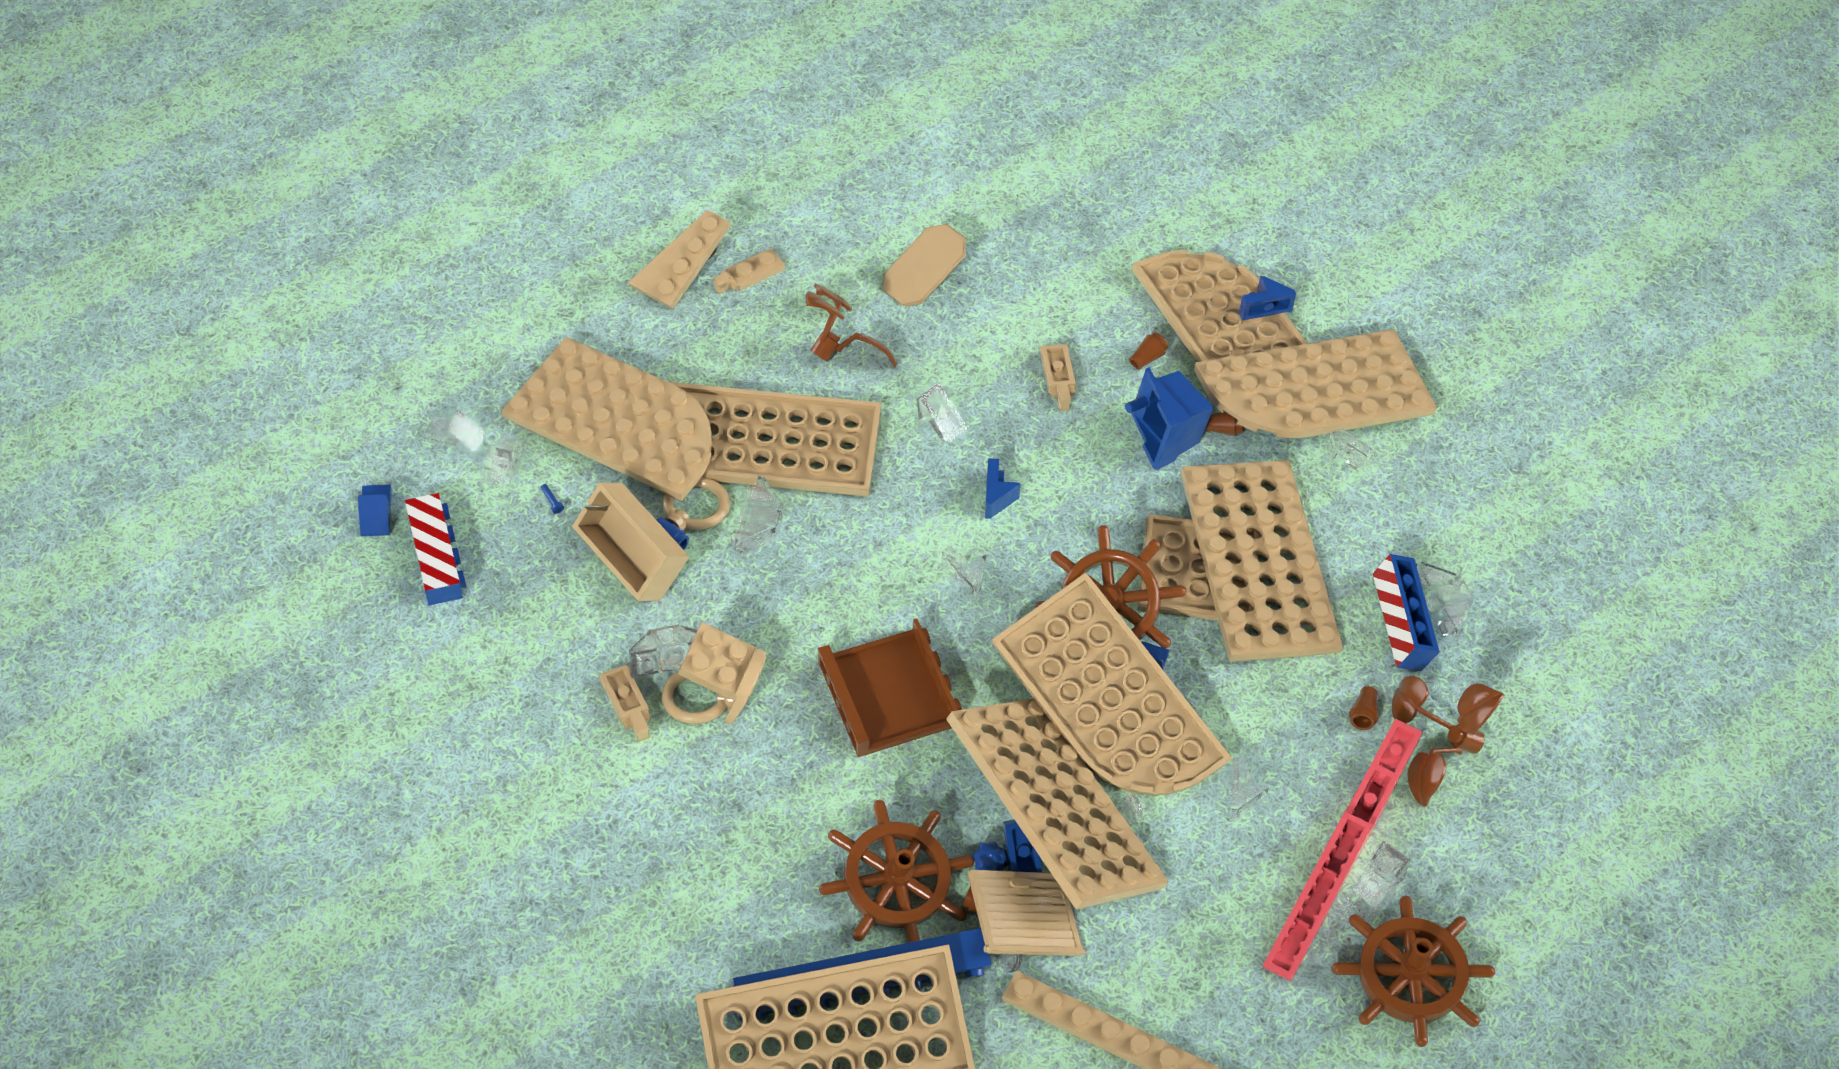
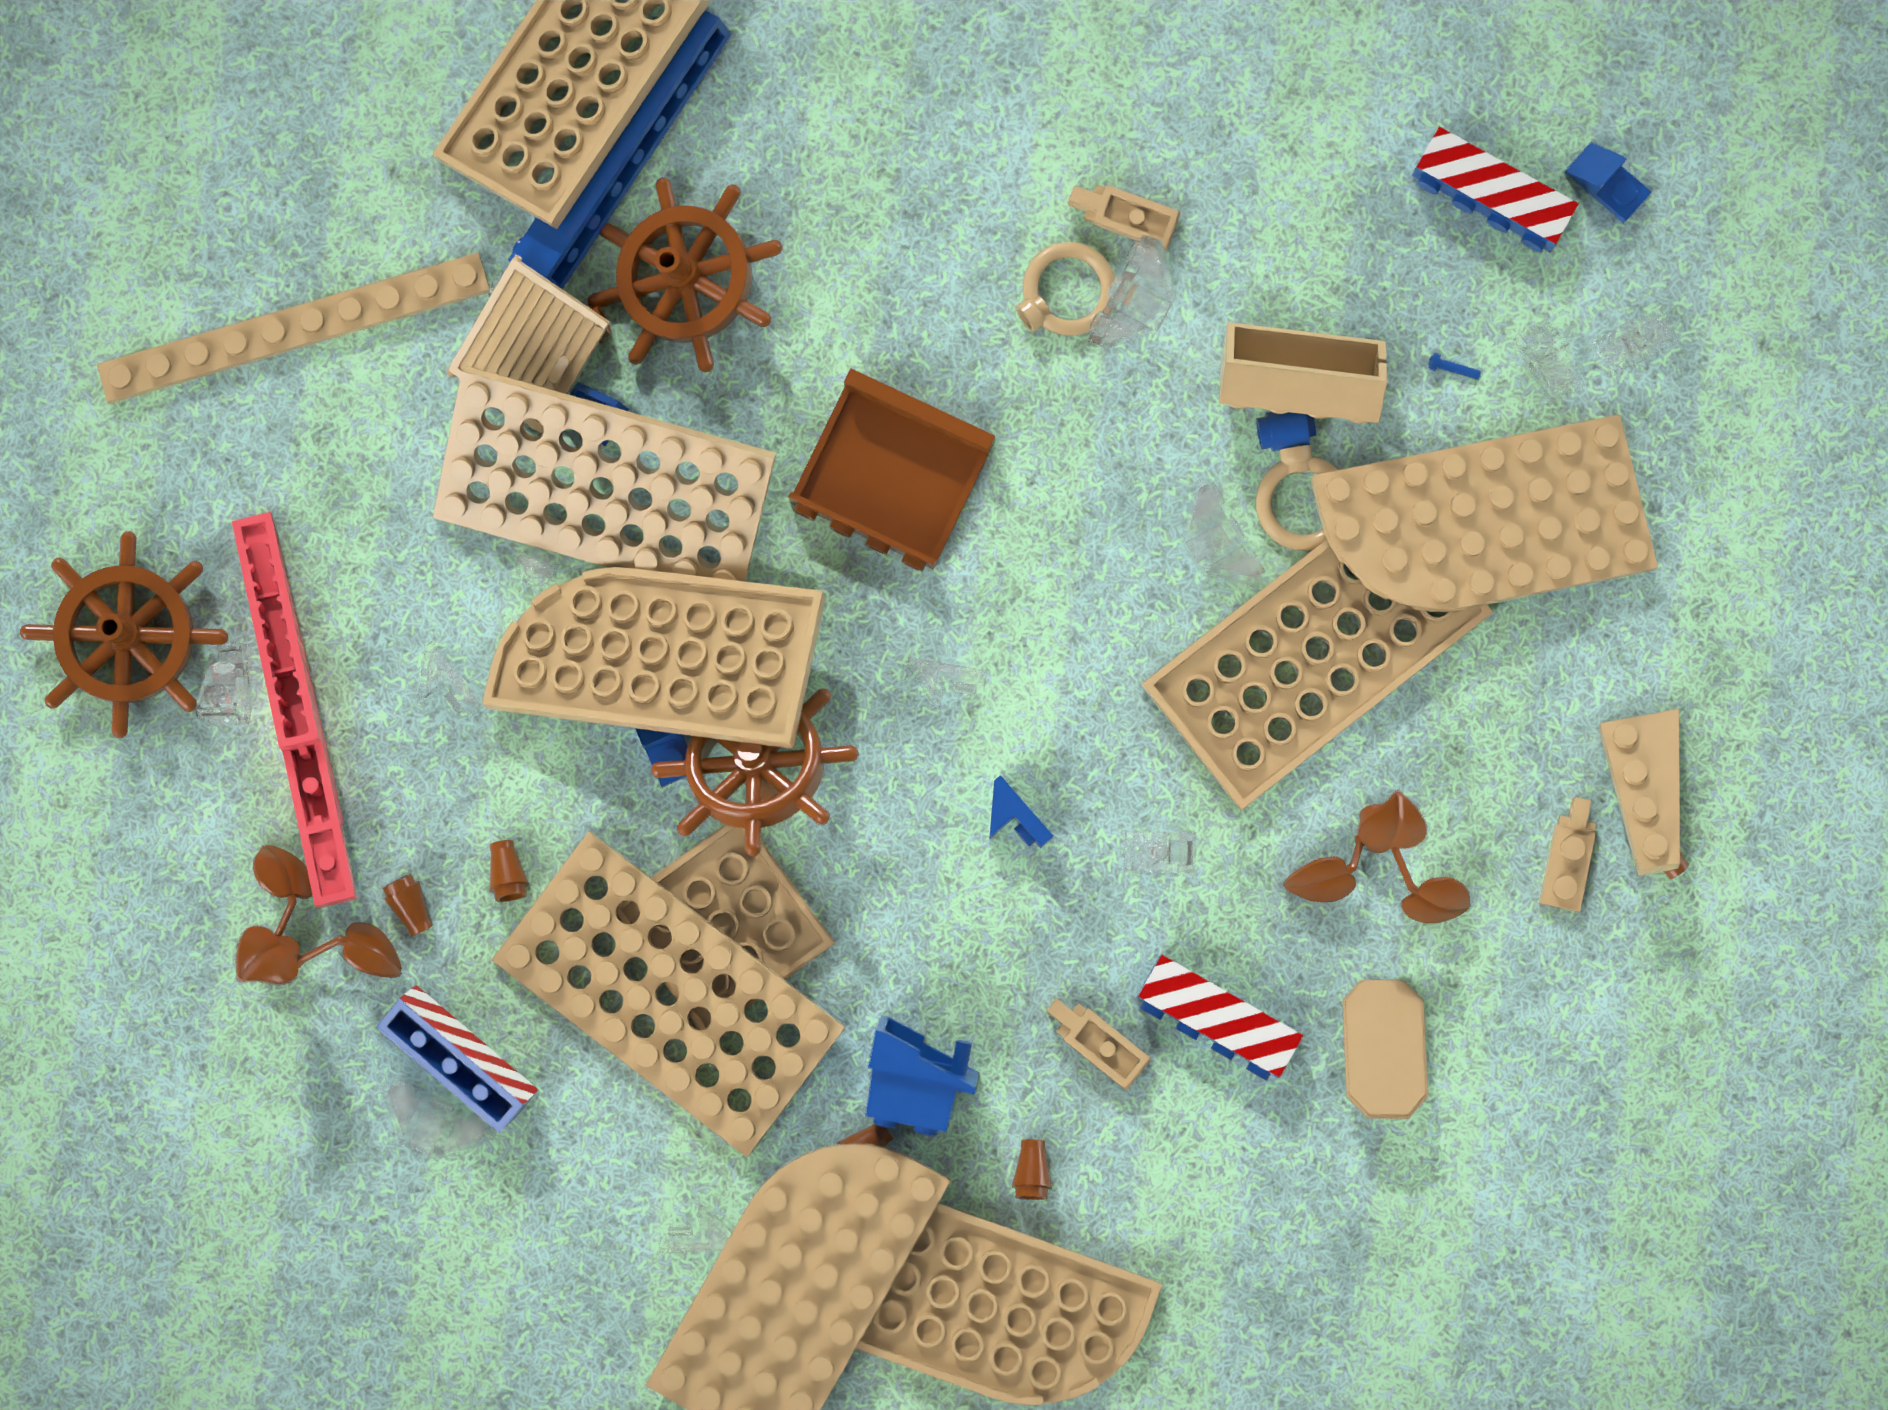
camera: 140 degrees right, 30 degrees up
(723, 666) = (1060, 324): tan piece -> none
(989, 337) = (1218, 1016): none -> brick
(990, 857) = (617, 377): blue piece -> none
(1269, 300) = (951, 1371): blue slope -> none
(1296, 677) = (506, 872): none -> dark orange cone

